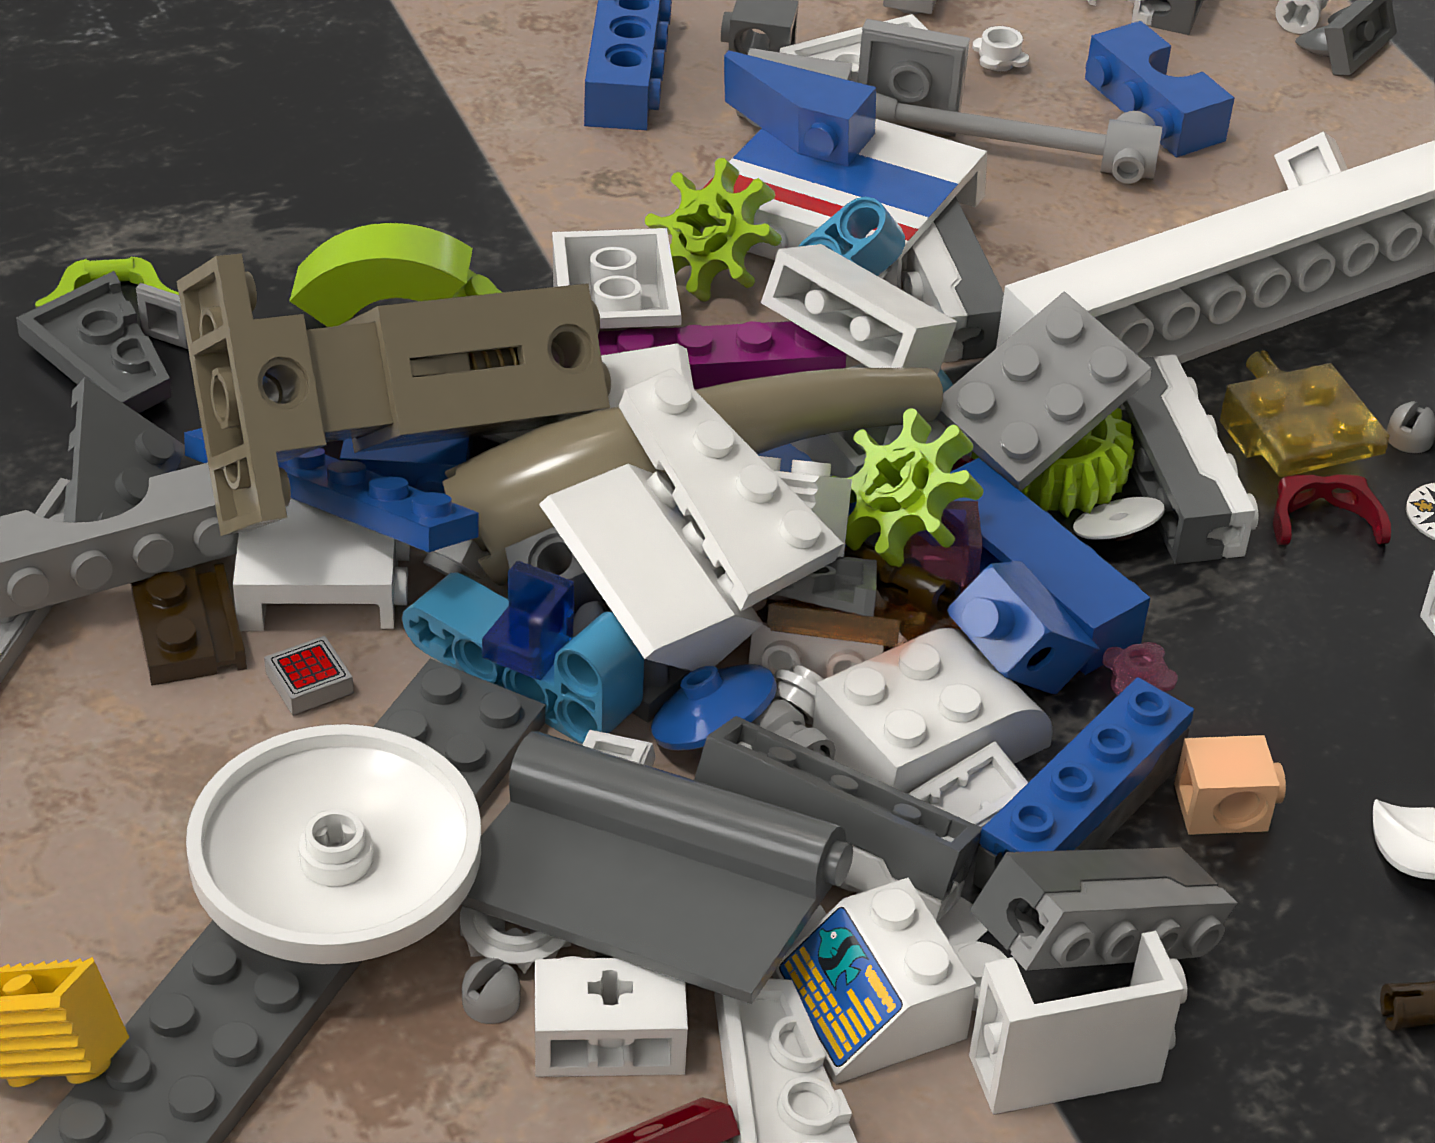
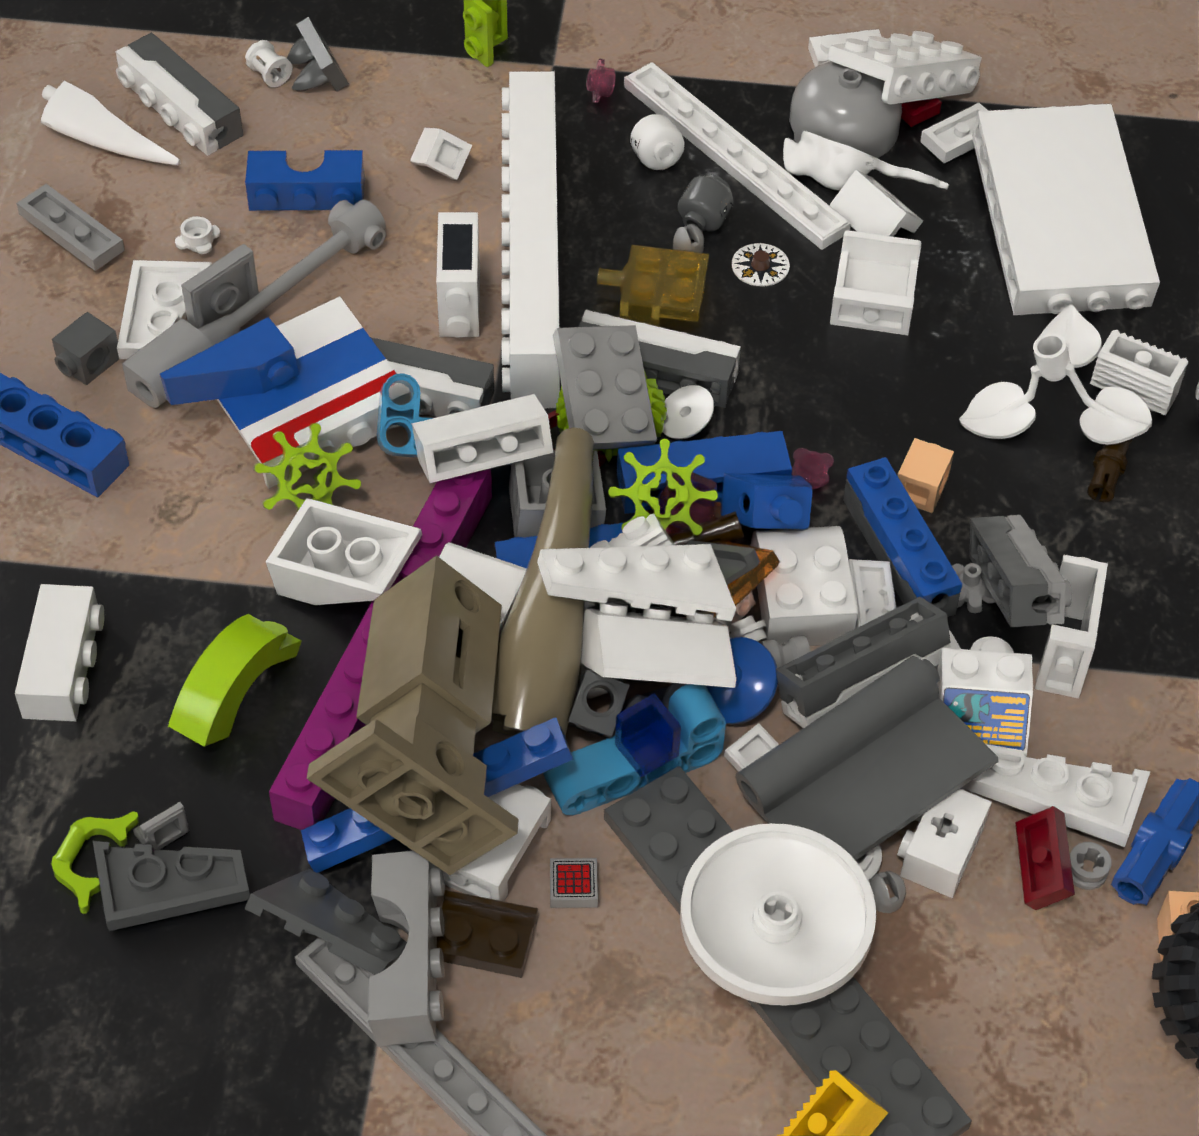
camera: 60 degrees left, 10 degrees up
(344, 162) = (59, 653): none -> white brick
(1122, 210) = (458, 274): none -> white brick
(1359, 501) = (728, 298): dark red cap -> none

